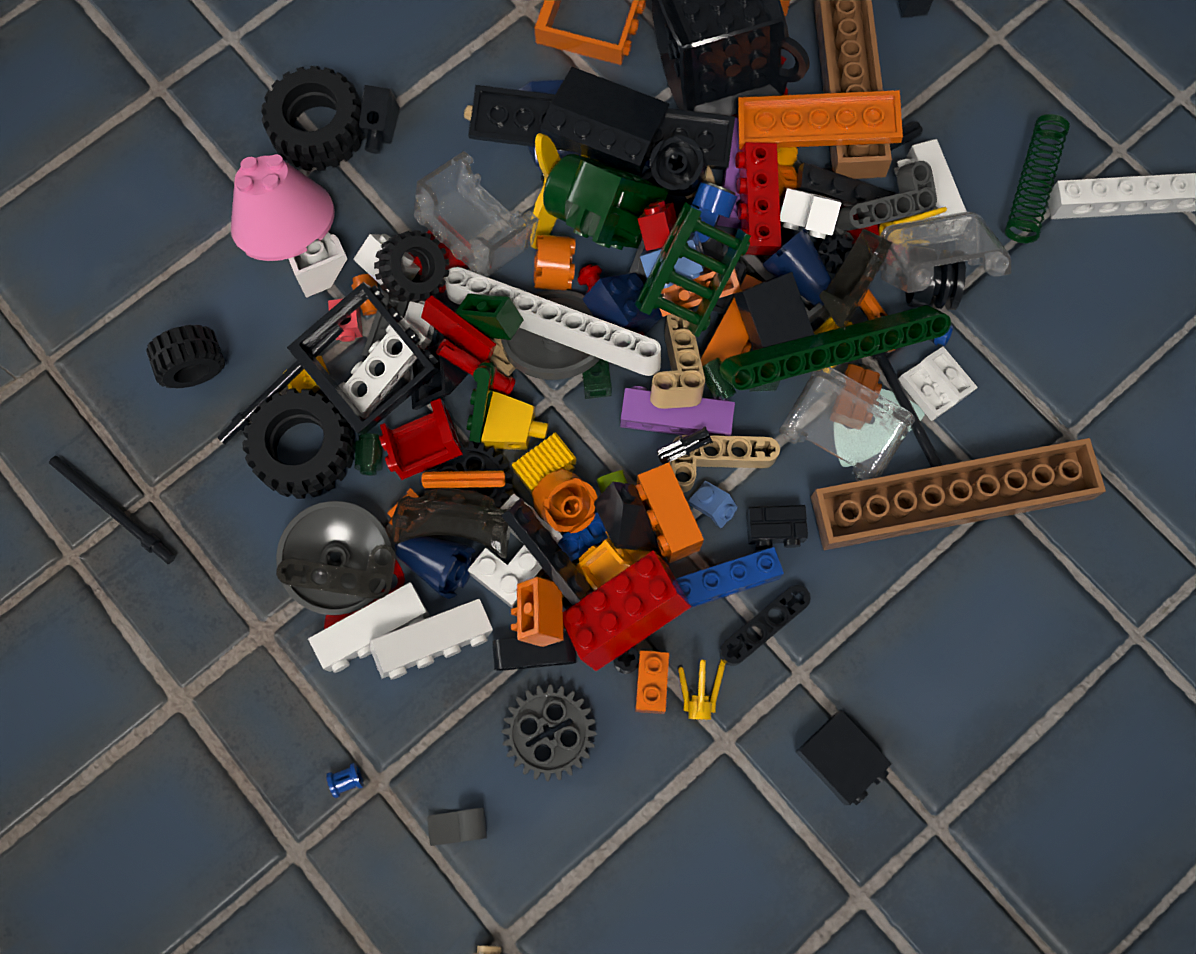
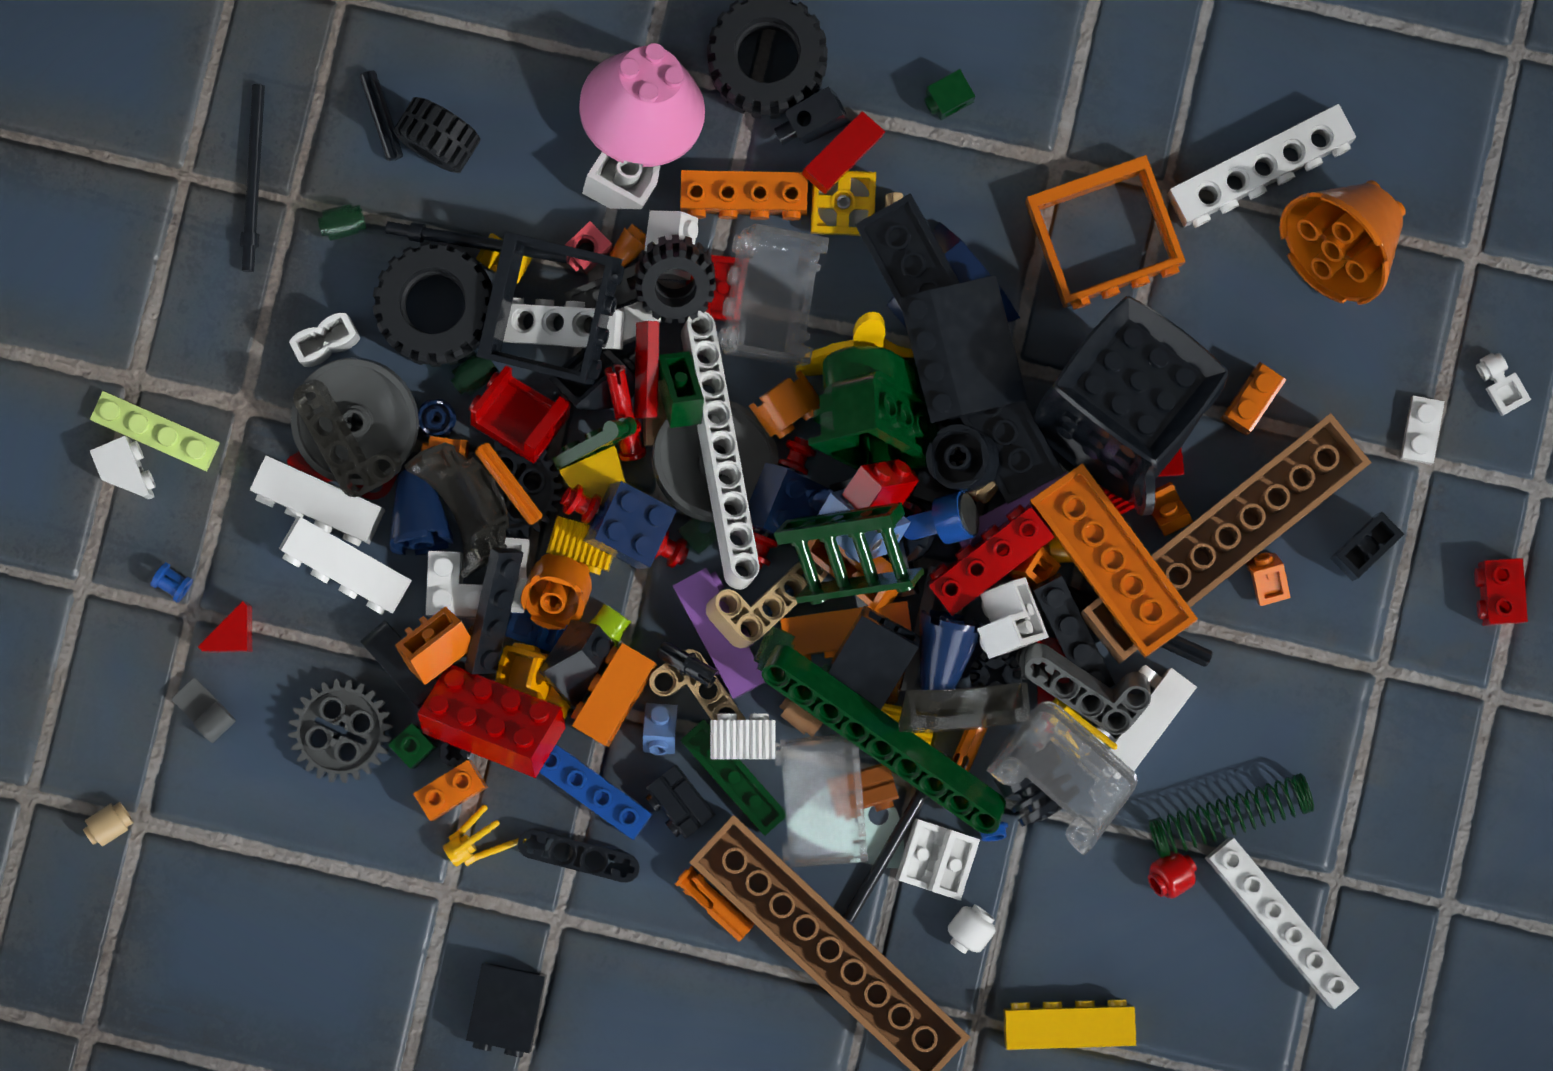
camera: 55 degrees right, 10 degrees up
(144, 392) = (381, 115): none -> black axle
(191, 468) = (342, 221): none -> clear green brick
(226, 712) = (154, 431): none -> yellowish green plate
(233, 756) = (121, 466): none -> white slope
(263, 529) = (317, 344): none -> white brick
(377, 494) = (439, 408): none -> dark blue plate
(389, 196) = (744, 194): none -> orange brick
(415, 118) = (843, 152): none -> red tile
(417, 762) = (233, 633): none -> red slope
(431, 34) = (949, 95): none -> dark green brick
(445, 140) = (844, 204): none -> yellow piece
(554, 417) = (627, 524): none -> dark blue brick
(599, 686) = (412, 746): none -> dark green brick
(766, 443) = (742, 738): none -> white brick
(773, 400) = (799, 718): none -> medium nougat brick
(784, 477) = (736, 781): none -> dark green plate
(809, 84) = (1169, 510): none -> orange bracket
(866, 553) = (716, 905): none -> orange piece
(894, 56) = (1268, 578): none -> orange bracket
(1005, 391) = (971, 929): none -> white head
(1053, 241) = (1172, 875): none -> red head
(1117, 375) = (1069, 1026): none -> yellow brick

